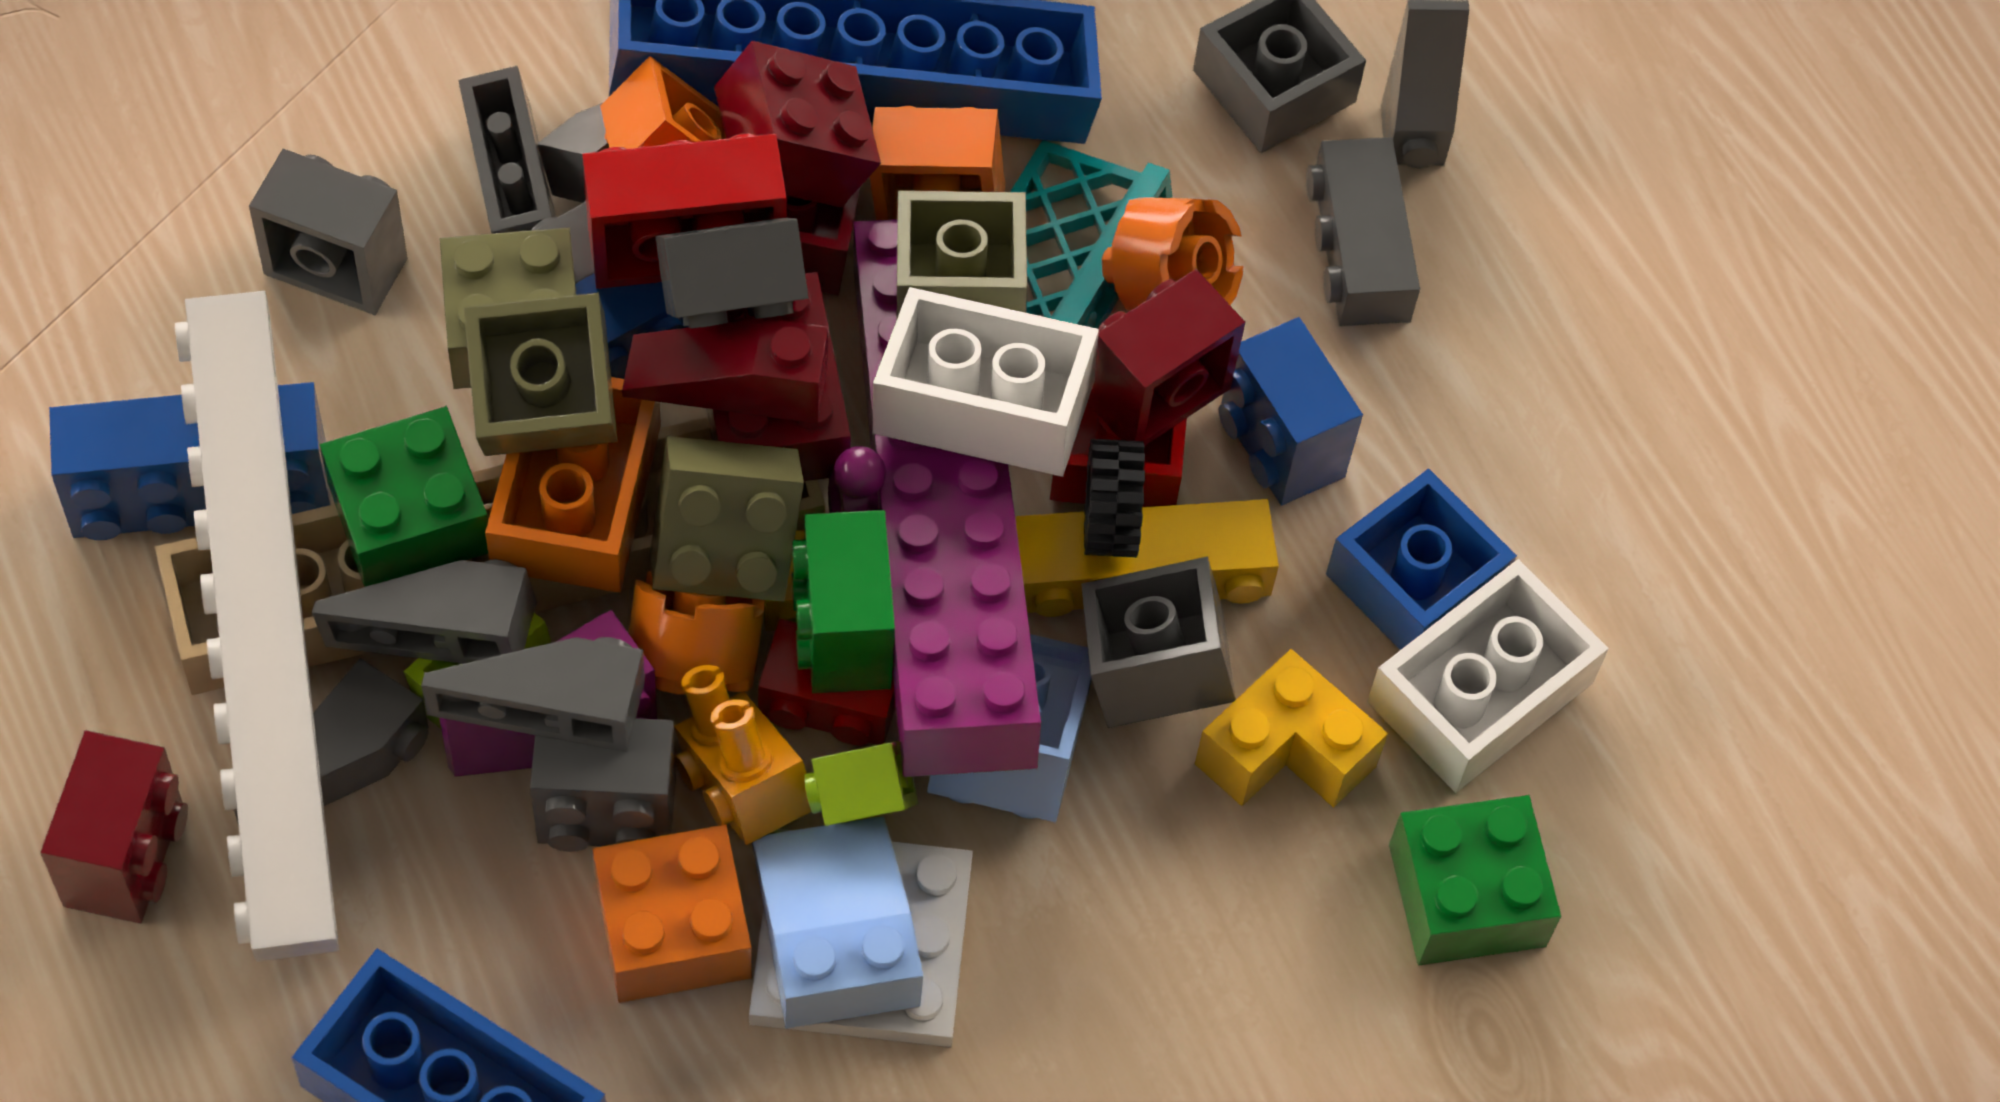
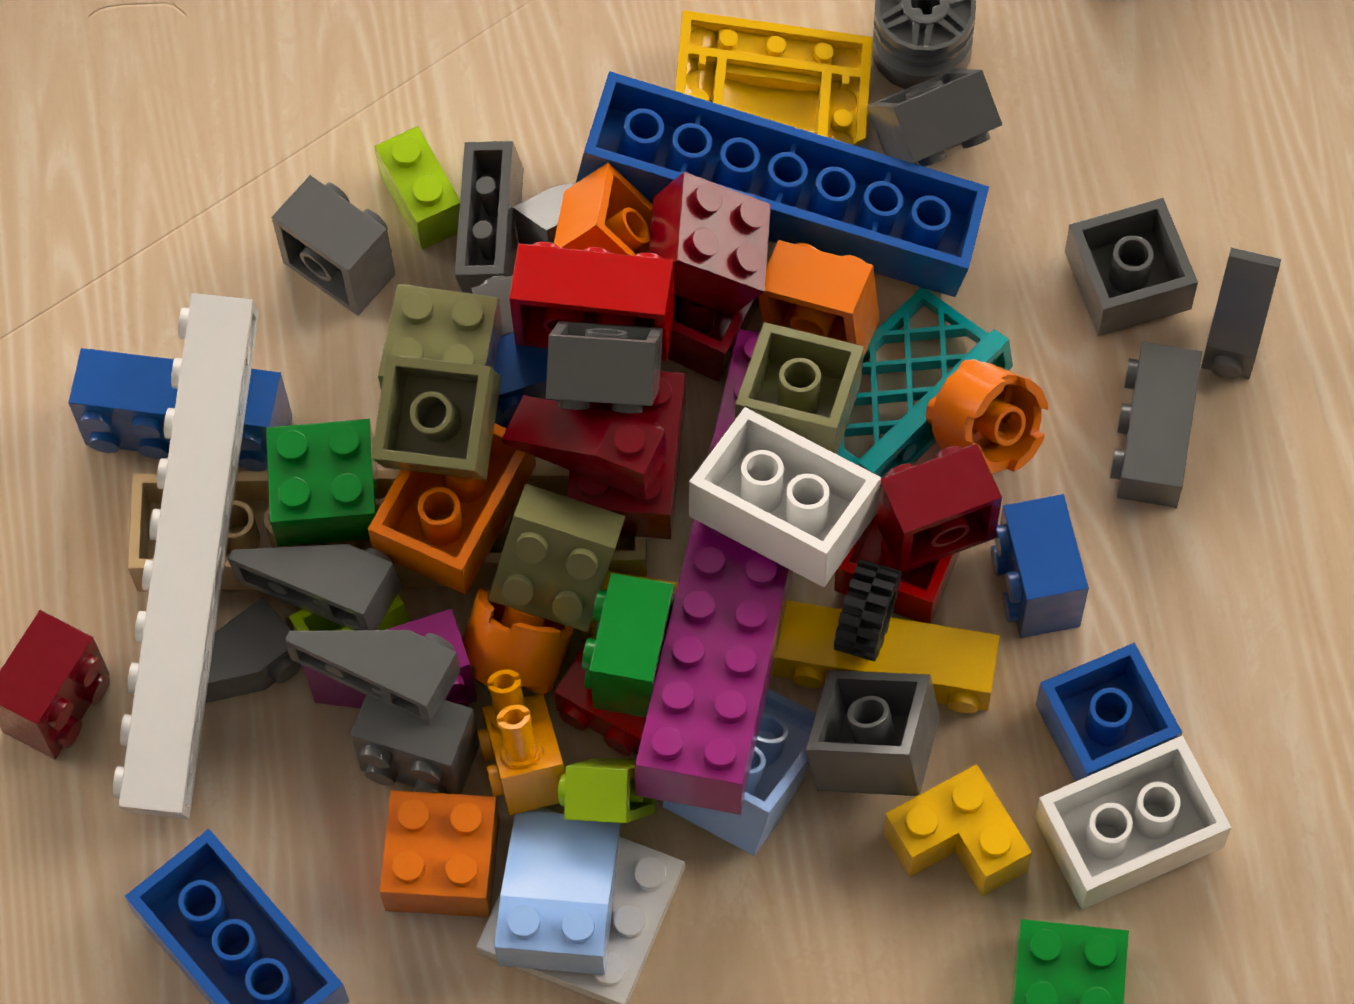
camera: 25 degrees right, 5 degrees up
(412, 149) = (419, 187): none -> lime brick
(856, 480) = (668, 550): magenta plate -> none

